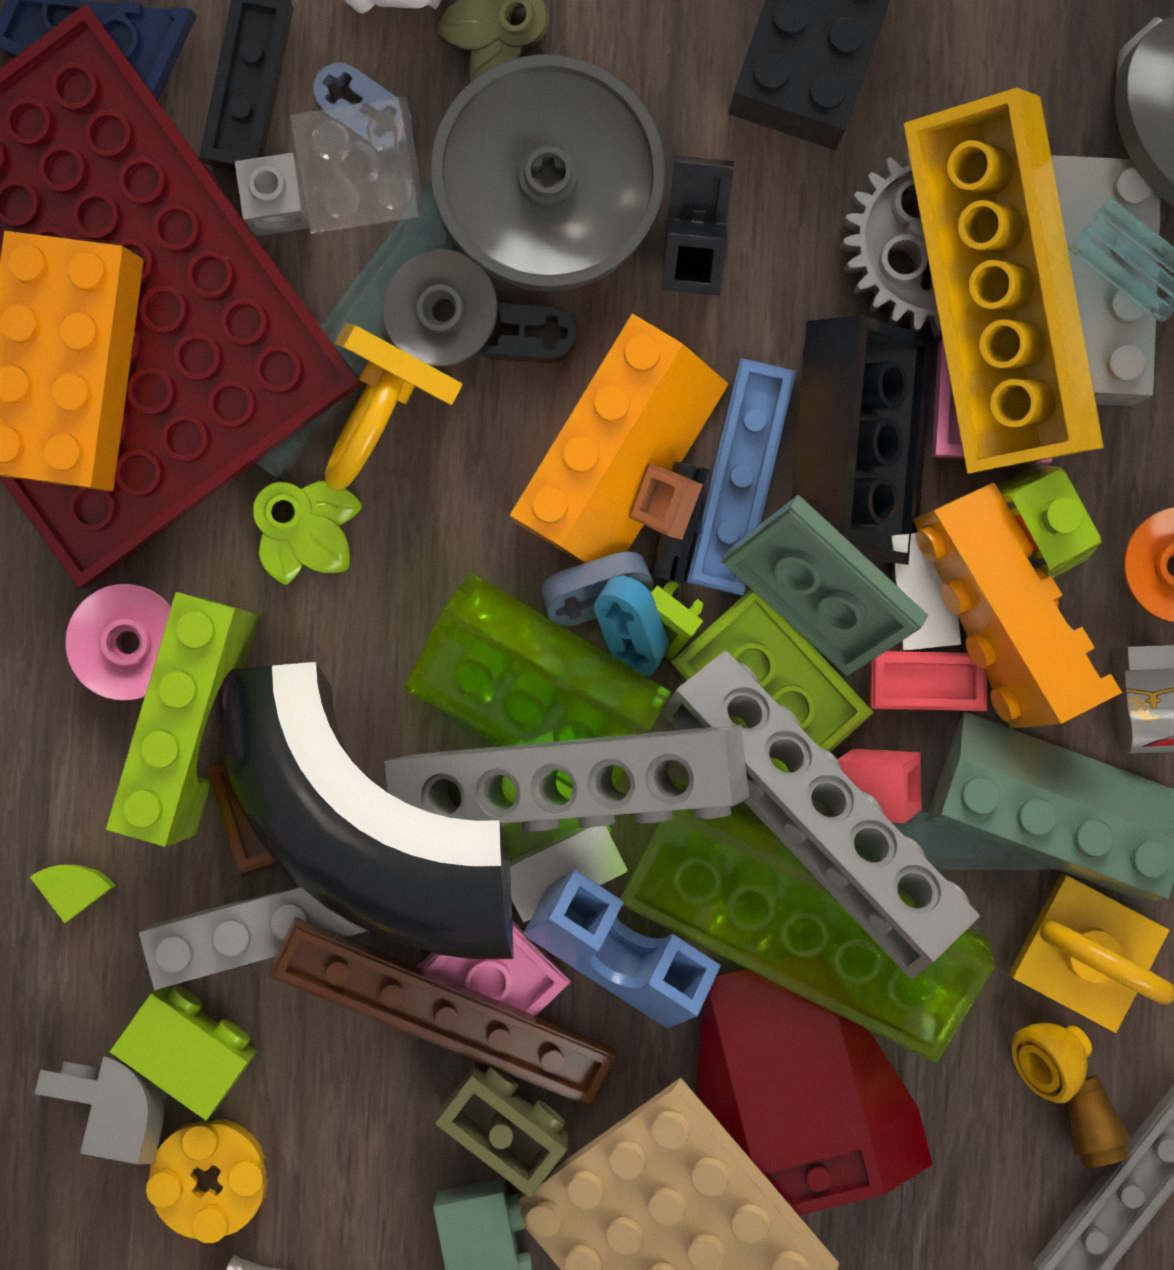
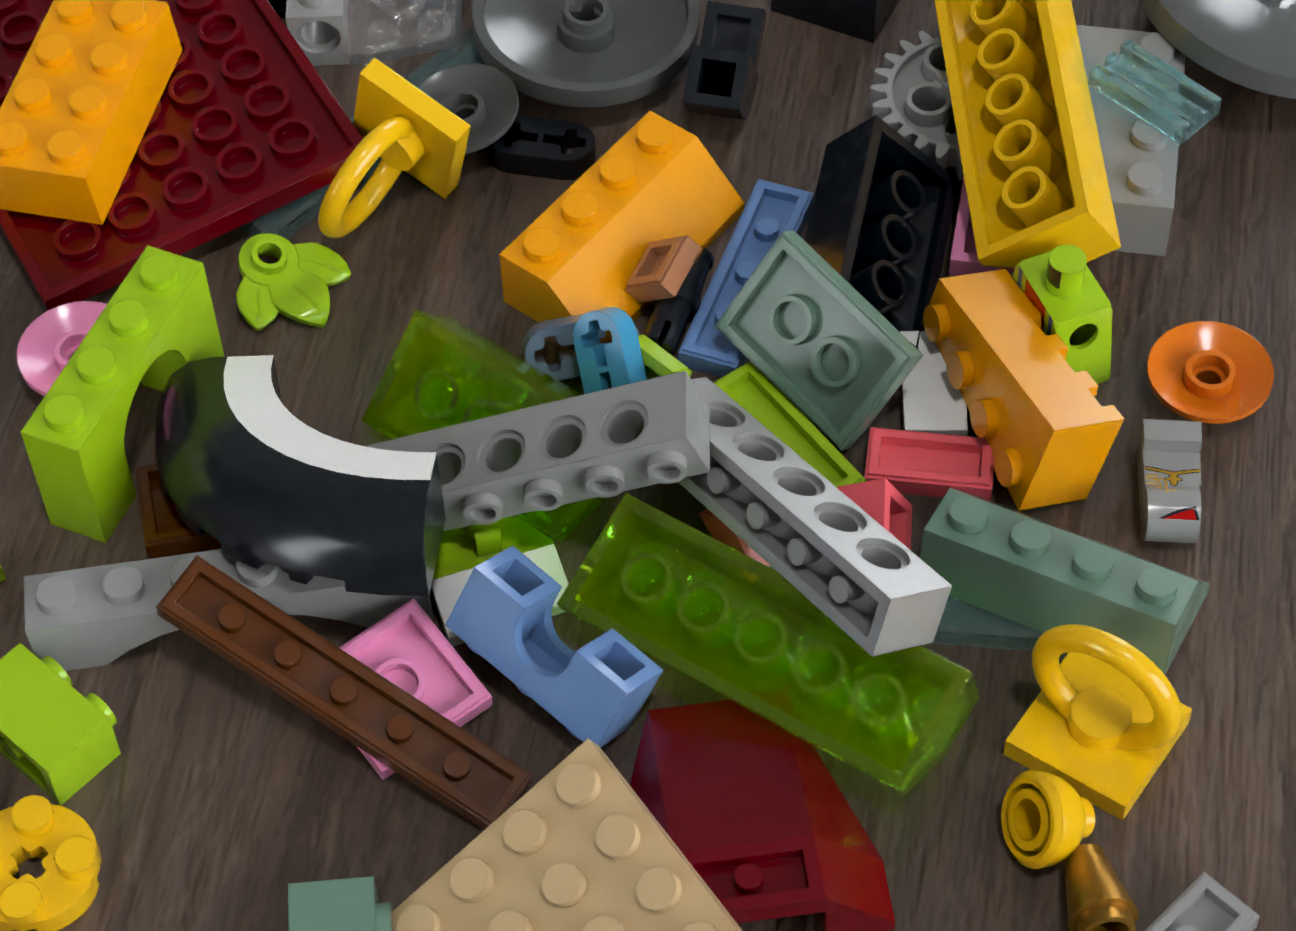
camera: 10 degrees right, 35 degrees down
(504, 1128) = (384, 816): olive brick -> none

